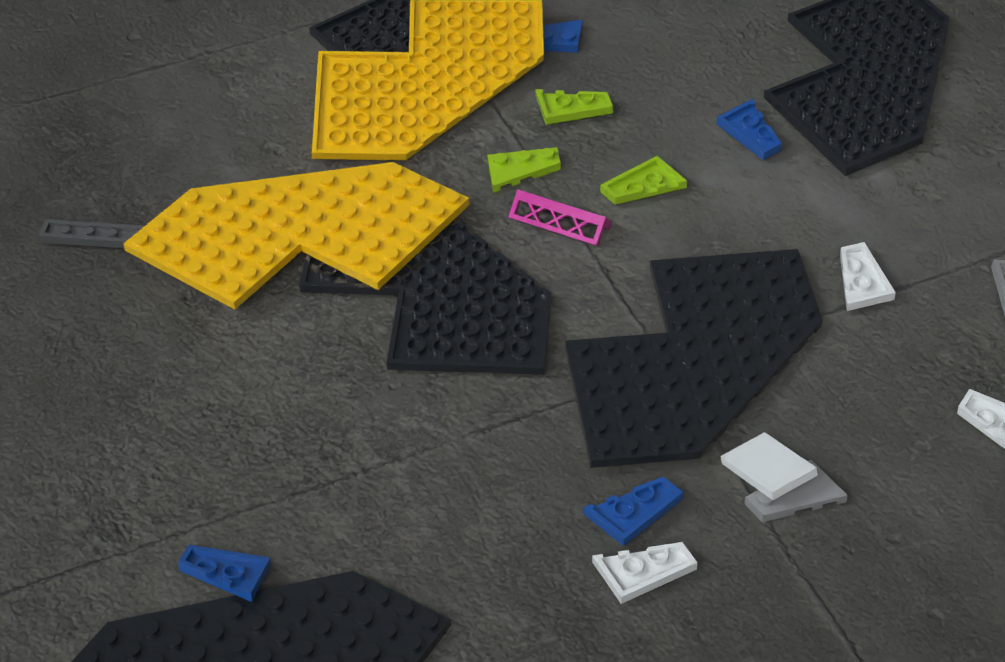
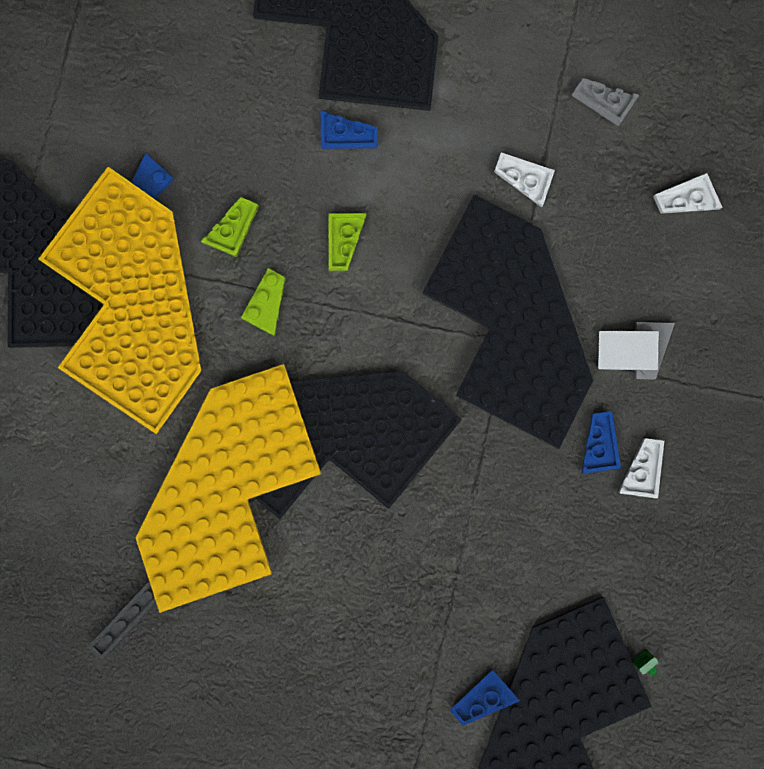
camera: 60 degrees left, 40 degrees up
(564, 211) = (336, 307): dark pink fence -> none

